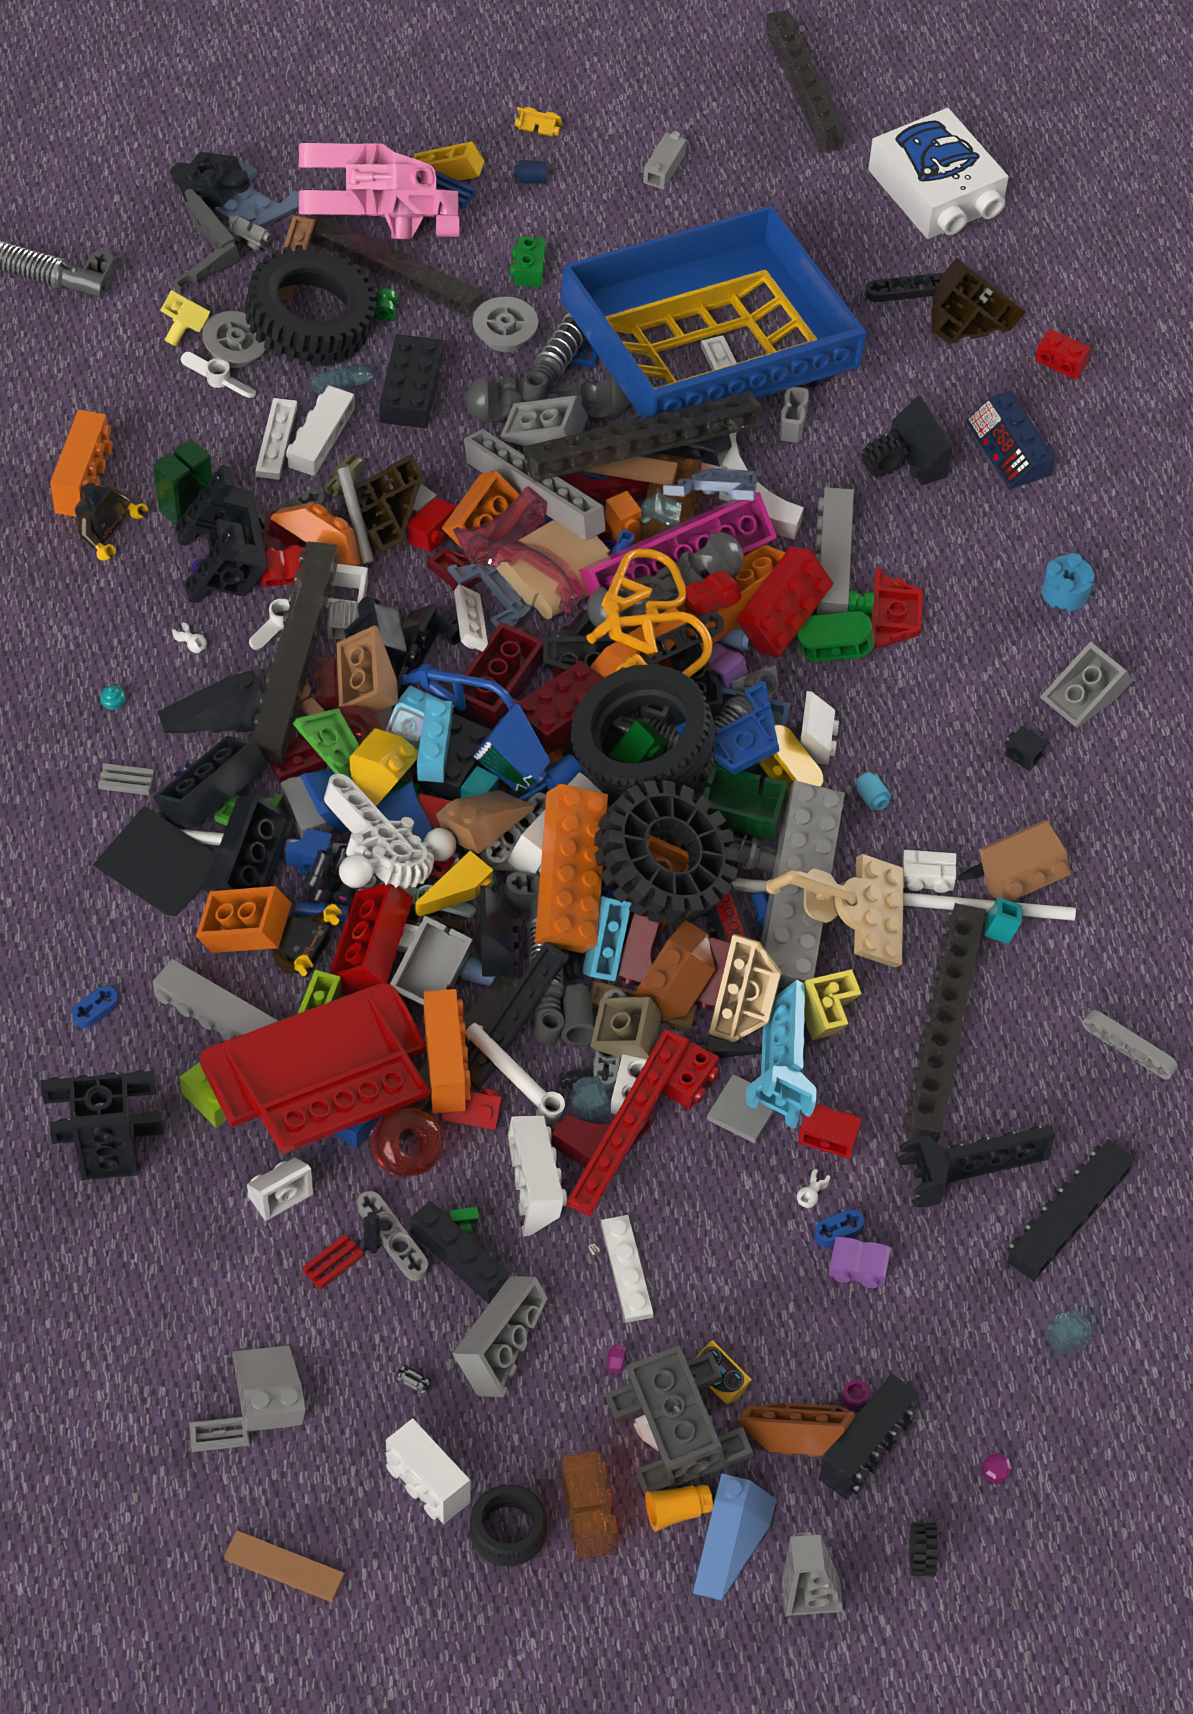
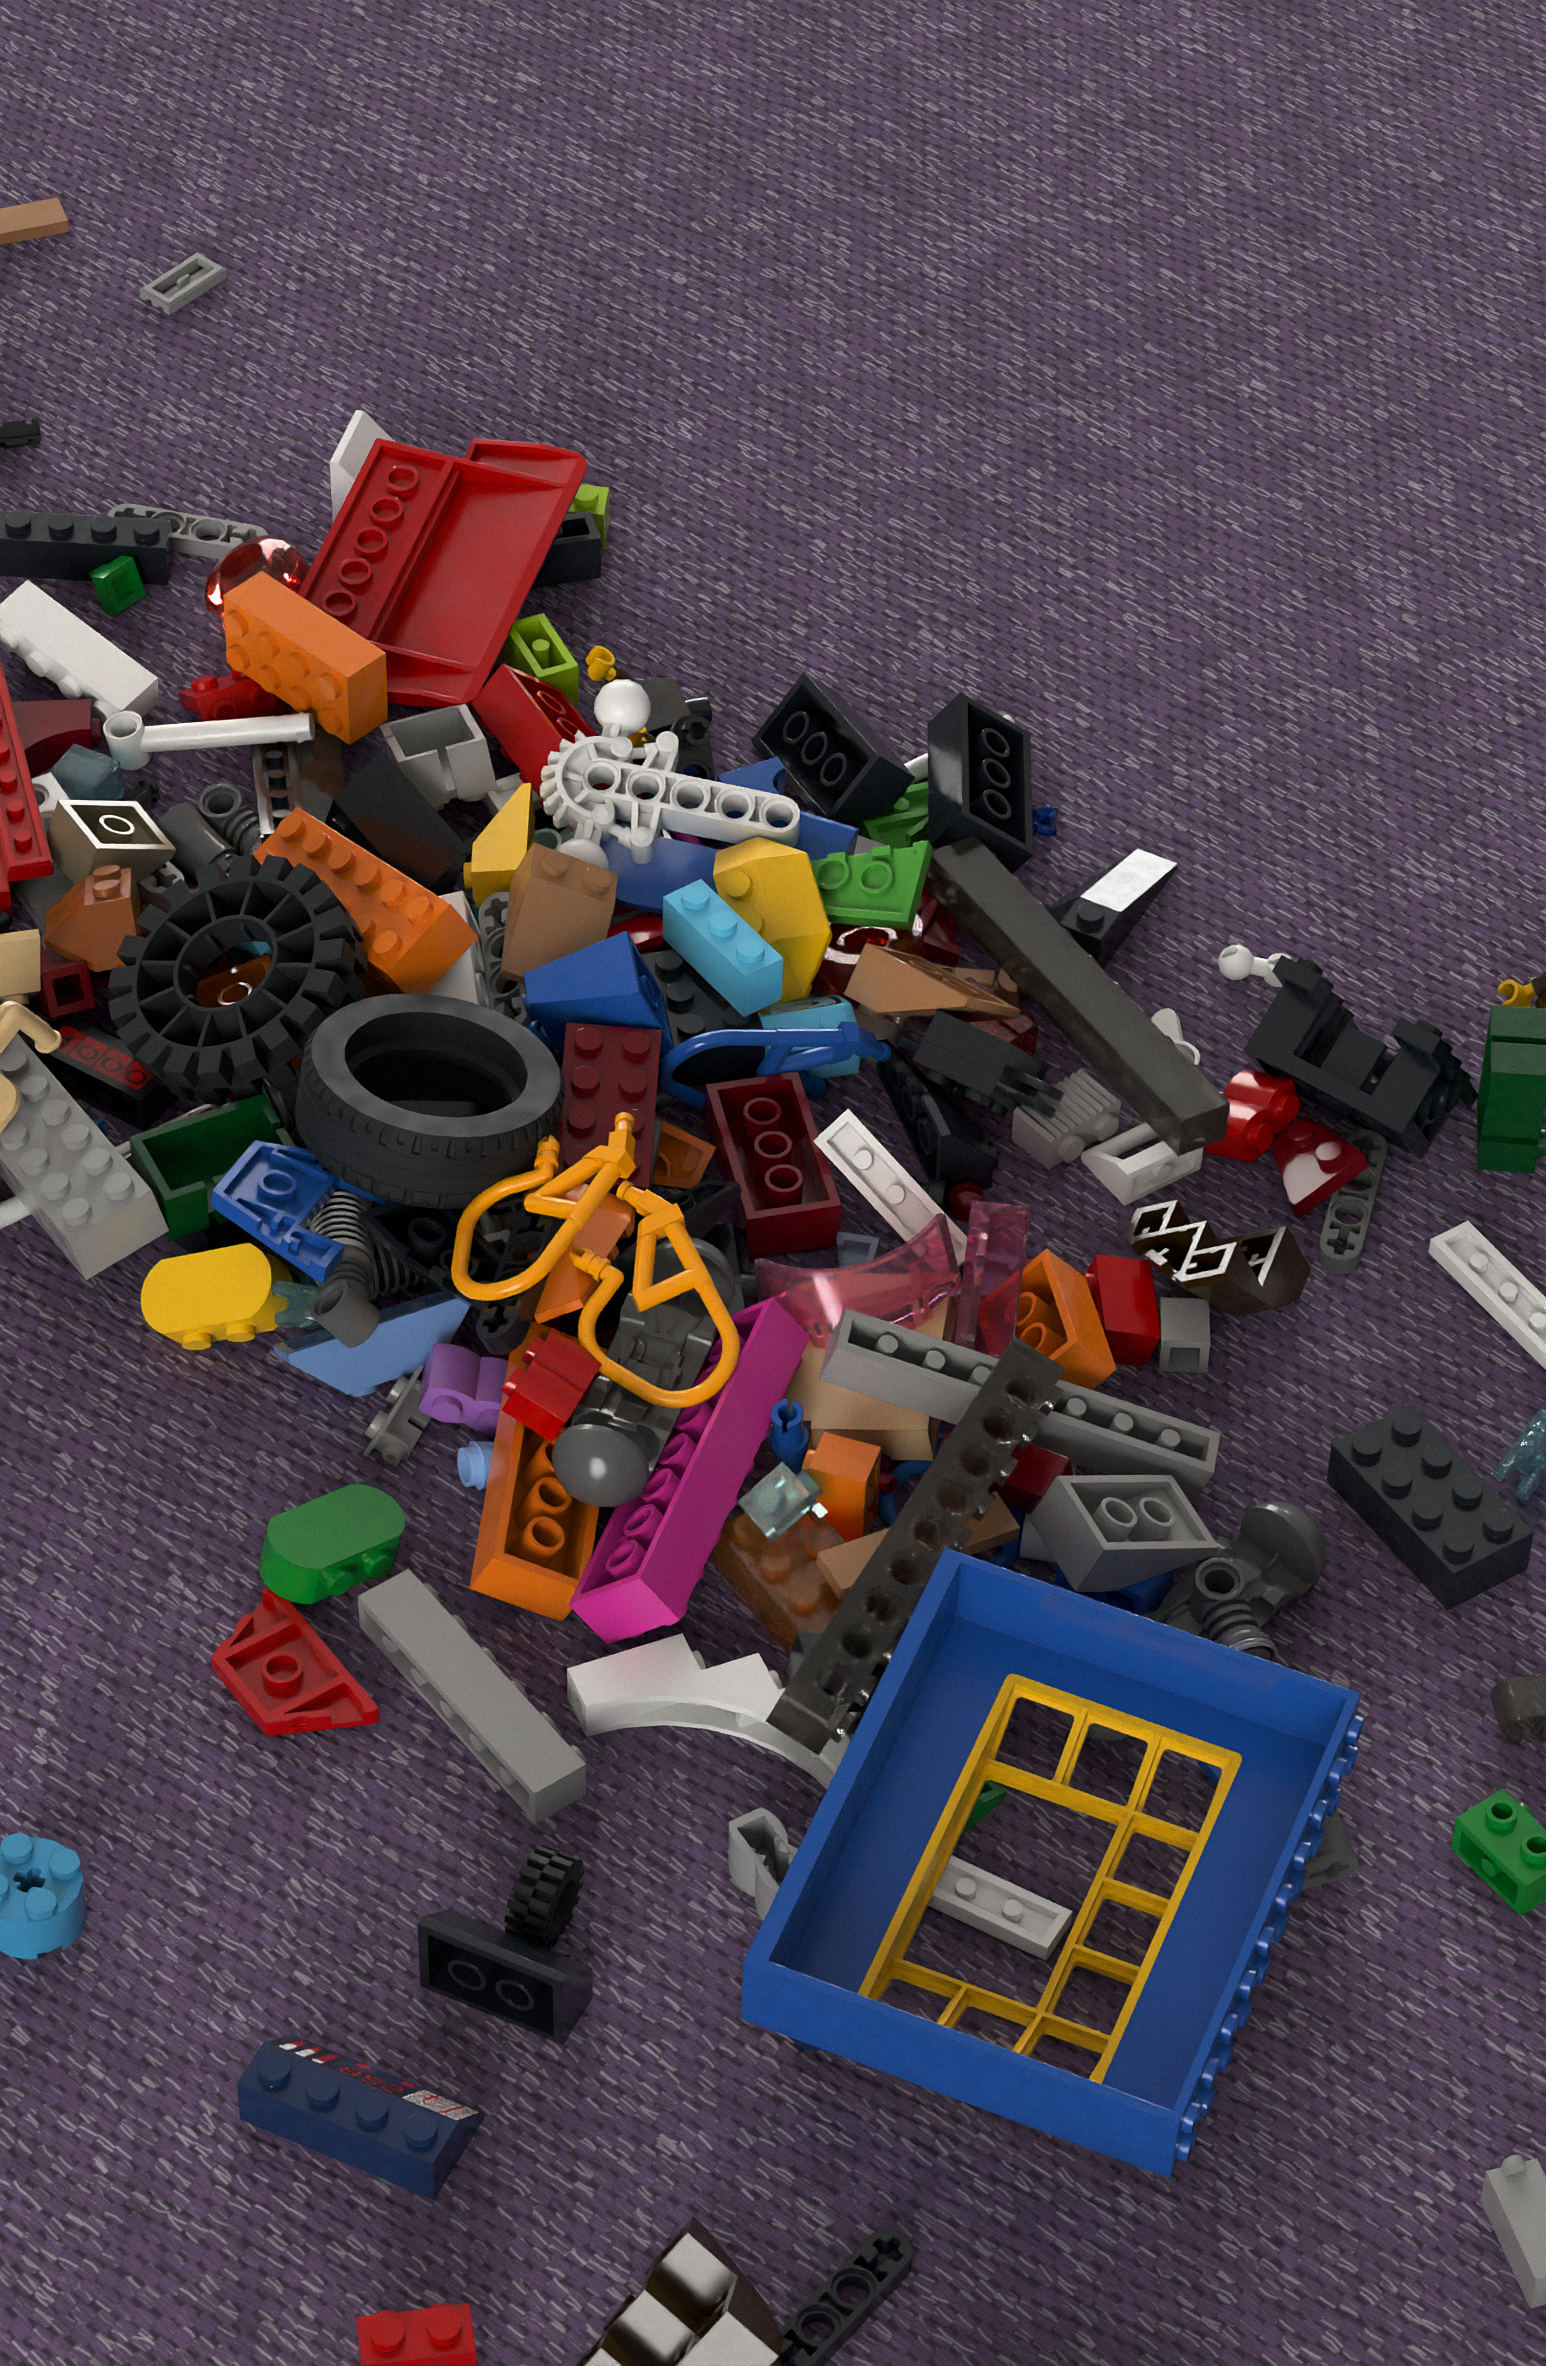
camera: 140 degrees right, 10 degrees down
(96, 1008) = (822, 530): blue beam -> none
(104, 1133) = (607, 364): black piece -> none
(112, 697) = (1252, 835): teal plate -> none
(127, 775) = (1103, 762): light grey tile -> none
(157, 862) = (905, 699): black sticker -> none
(207, 1002) = (655, 601): light grey brick -> none
(243, 919) = (729, 665): orange brick -> none
(268, 1388) = (168, 327): light grey slope -> none
(315, 524) = (1258, 1181): orange wedge -> none
(320, 430) = (1460, 1345): white brick -> none
(341, 1268) = (235, 456): red tile -> none
(355, 464) = (1341, 1307): olive arm -> none
(355, 515) = (1257, 1222): light grey piece -> none
(371, 1232) = (204, 487): black axle -> none
(505, 323) = (1412, 1697): light grey piece -> none
(736, 483) = (728, 1609): sand blue wing -> none
(784, 601) = (447, 1497): red brick -> none
(818, 729) = (225, 1383): white slope -> none
(861, 603) = (354, 1637): green wheel -> none
(873, 791) = (63, 1375): medium azure brick -> none

